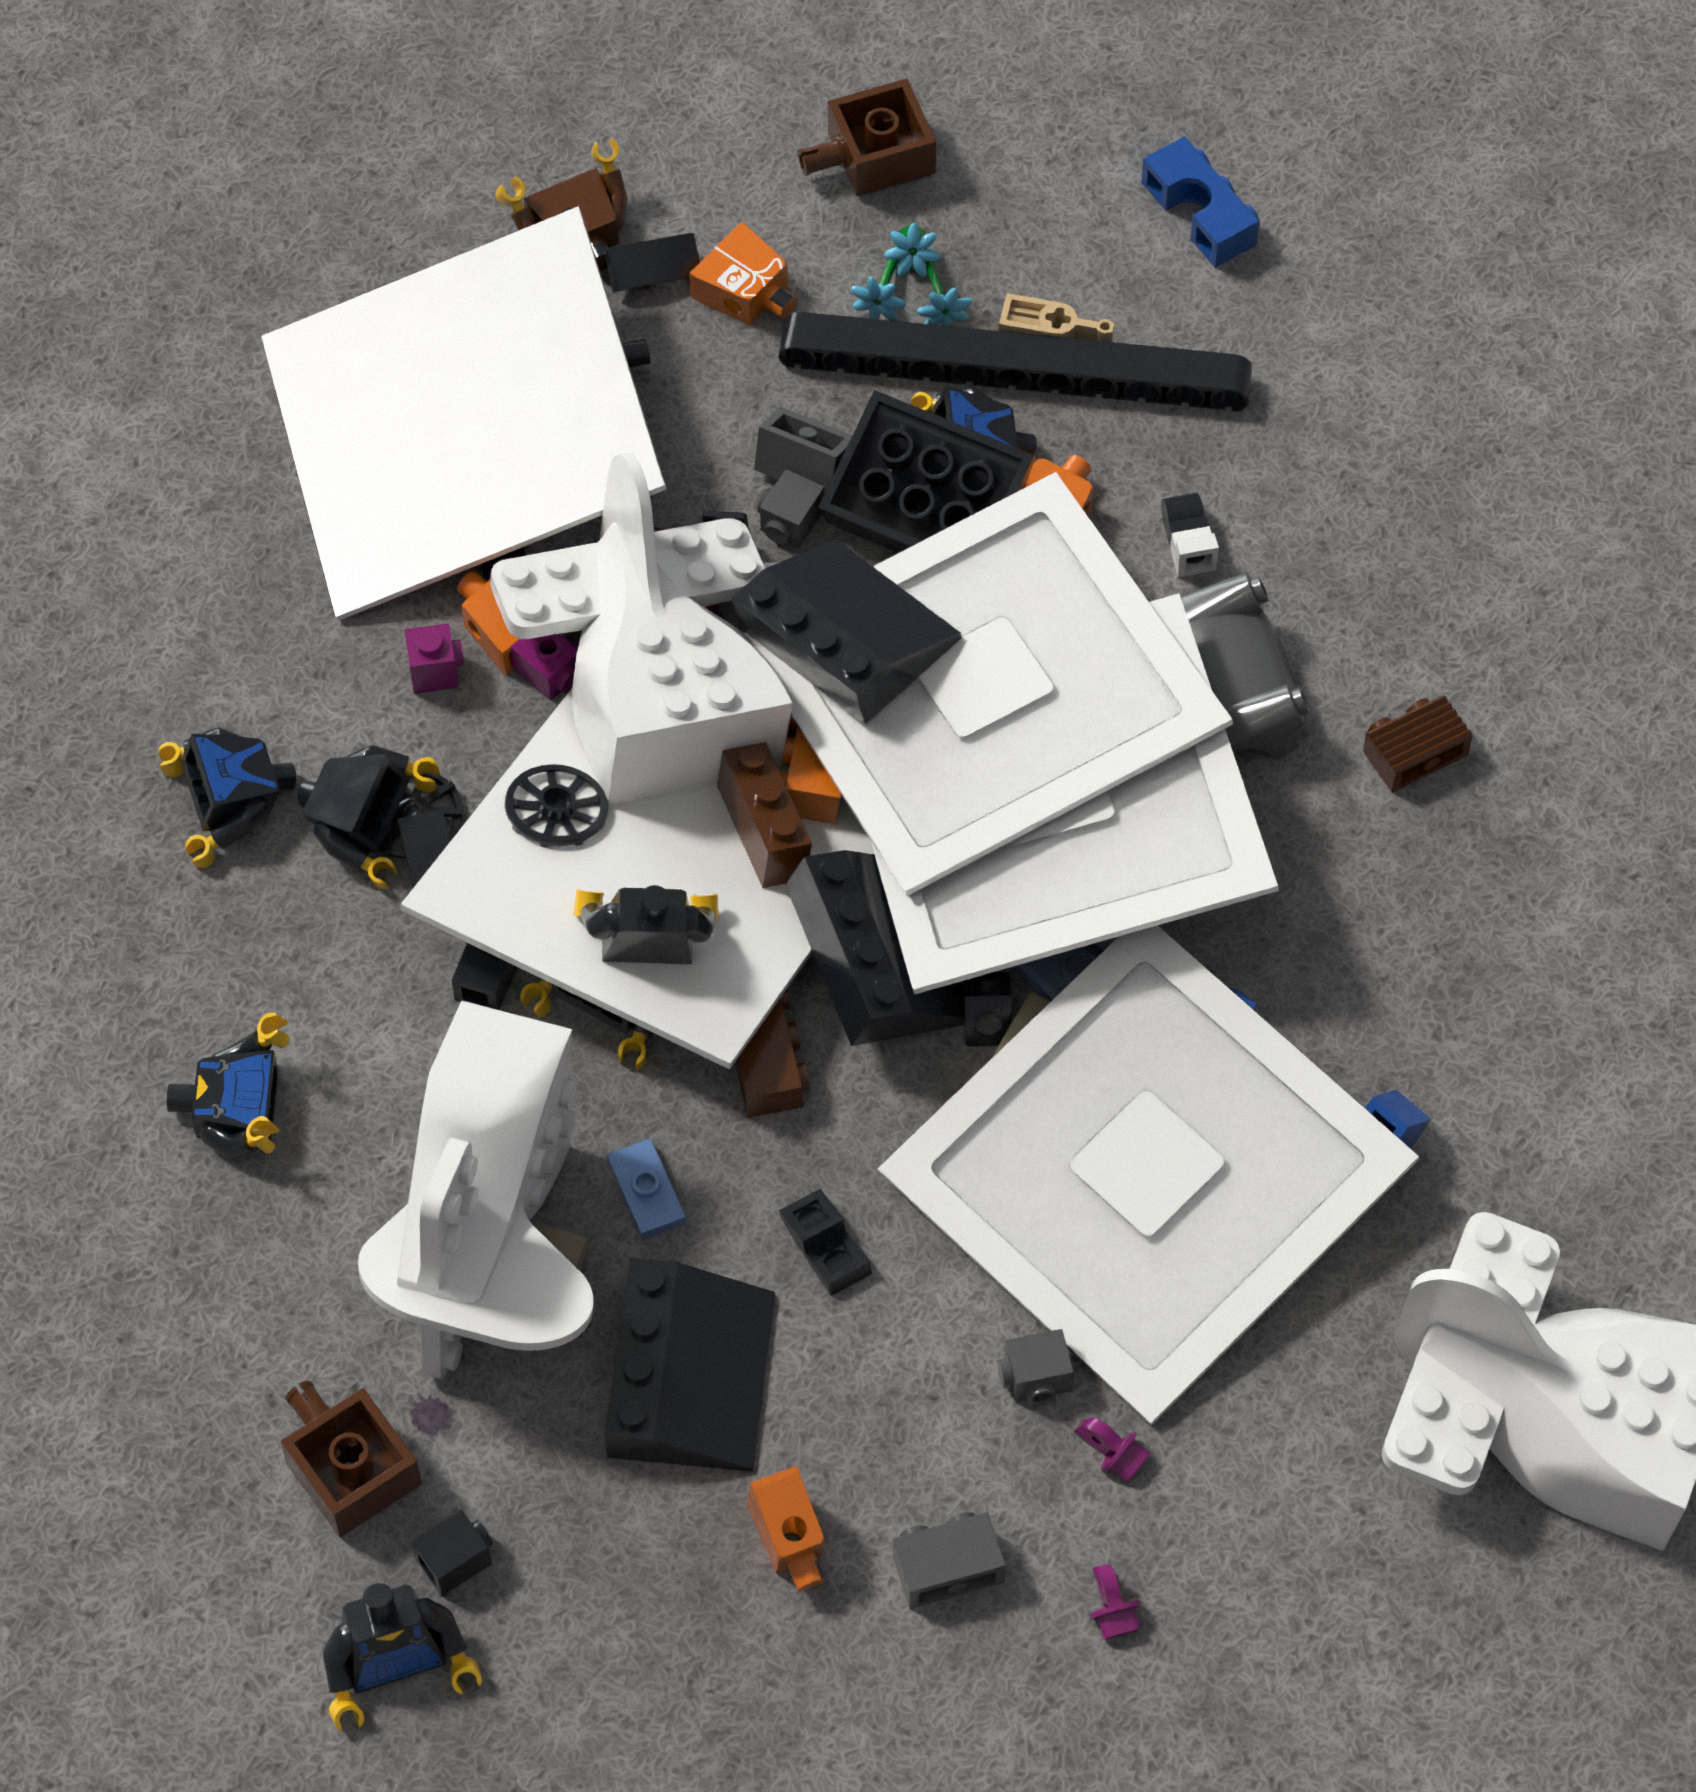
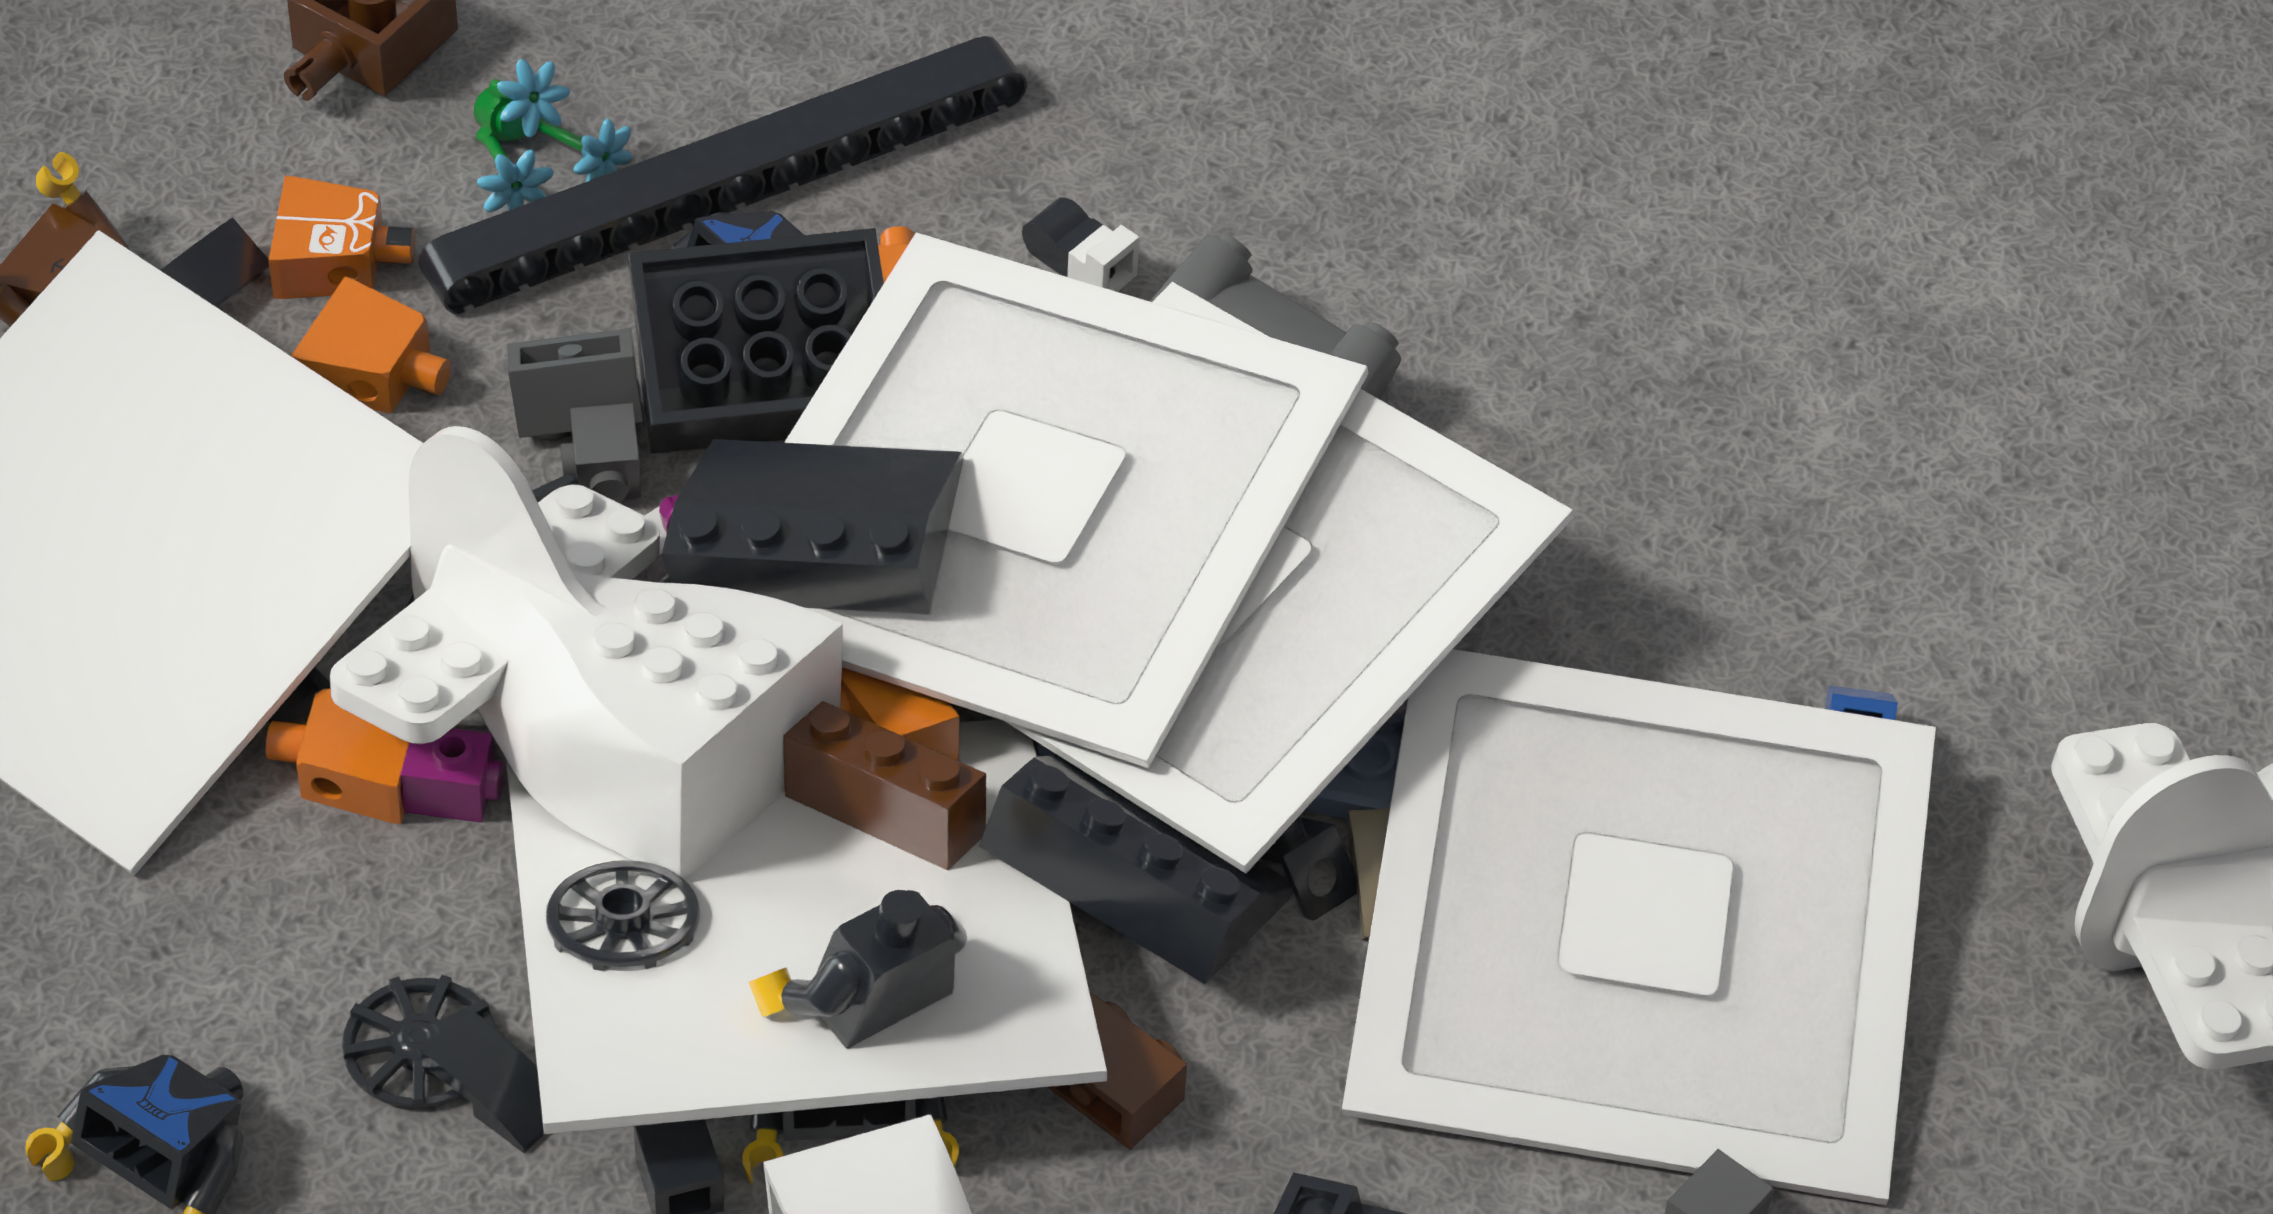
camera: 40 degrees left, 10 degrees down
(357, 802) = (354, 1061): black torso -> none
(433, 658) = (303, 846): magenta brick -> none
(707, 364) = (372, 347): none -> orange torso
(1050, 318) = (733, 104): tan piece -> none
(1417, 742) = (1519, 326): reddish brown brick -> none

